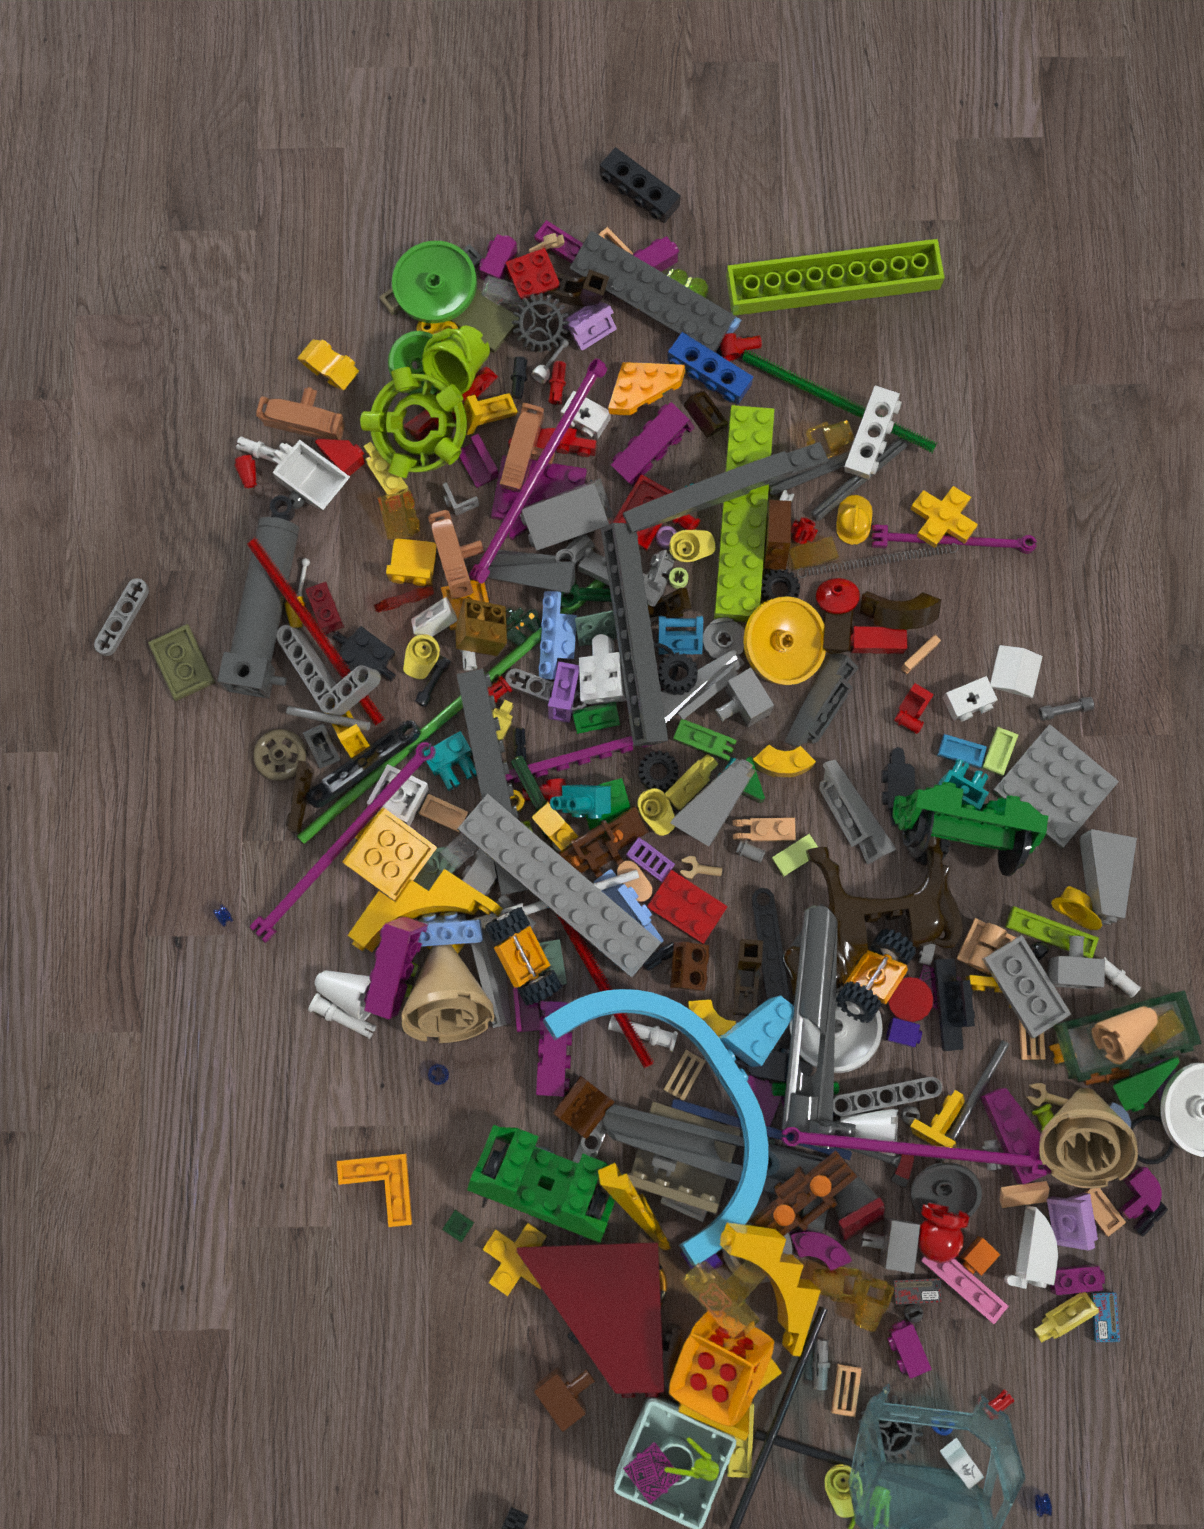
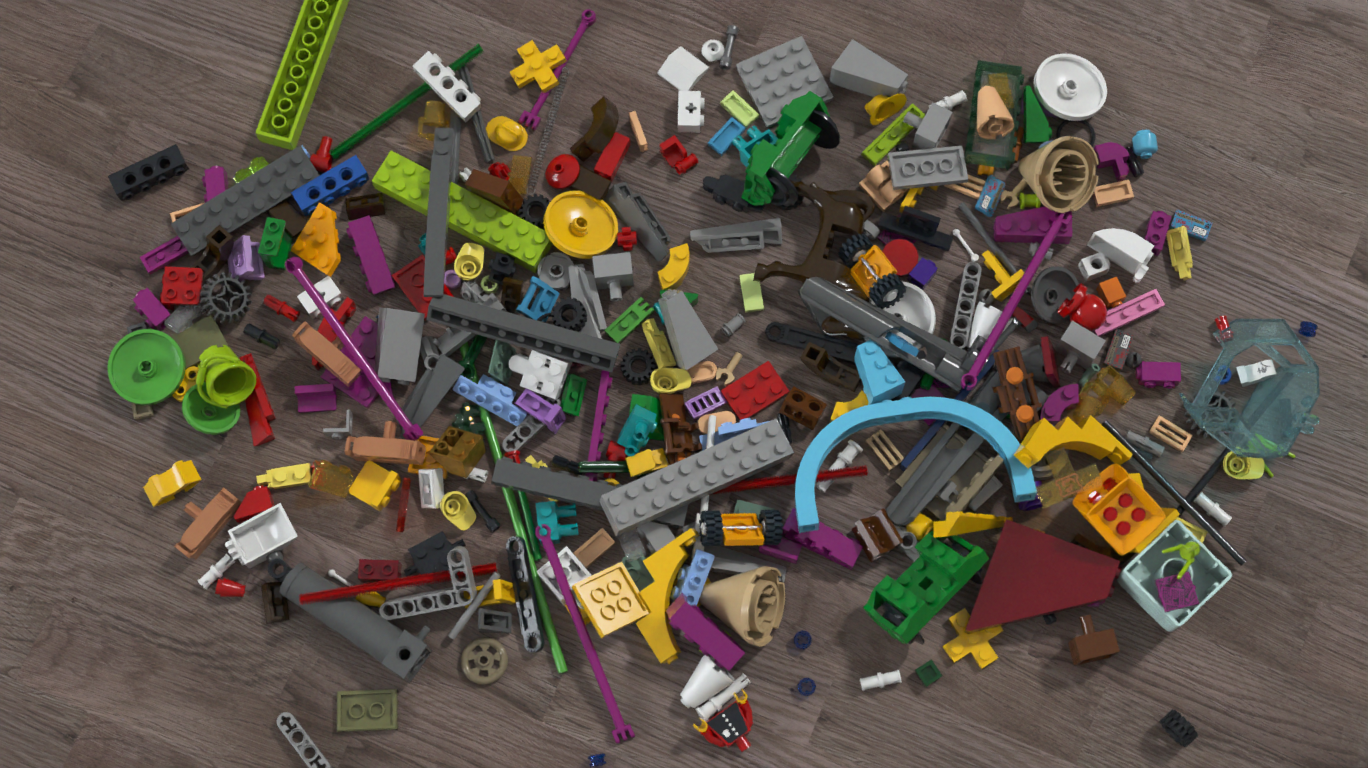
camera: 65 degrees left, 5 degrees down
(246, 524) = (274, 603): none -> dark brown slope
(298, 799) = (528, 658): dark brown wing -> none
(313, 1036) = (729, 725): none -> torso
(388, 1168) = (867, 706): light orange plate -> none
(397, 1097) = (806, 693): none -> clear blue bush
(429, 1176) = (880, 680): none -> white pin
(440, 406) = (244, 460): lime piece -> none
(442, 734) = (530, 526): none -> green bar
(487, 410) = (277, 374): yellow bracket -> none
(542, 372) = (267, 316): hinge -> none
(550, 241) = (161, 260): tan bar -> none
(613, 1151) = (920, 526): none -> yellow head
(619, 342) = (275, 244): none -> green panel
(654, 343) = (294, 220): none -> dark brown slope
(683, 842) = (702, 372): none -> light nougat tile
(699, 581) = (501, 267): none -> black brick
(766, 829) = (721, 305): light nougat hinge -> none
(779, 1474) = (1212, 509): none -> white pin
(793, 696) = (627, 238): none -> red gear
(804, 1043) = (901, 343): none -> dark azure tile
(870, 1267) = (1088, 375): none -> sand green arm
(950, 1083) = (974, 257): none -> white hinge
(993, 1218) = (1091, 273): none -> white brick
(1024, 1194) = (1079, 240): light nougat tile -> none
(1030, 1071) = (990, 195): none -> dark azure tile
(1047, 693) = (713, 55): none -> white plate
(1073, 1221) = (1113, 213): lavender bracket -> none
(1177, 1224) = (1144, 144): none -> medium azure head

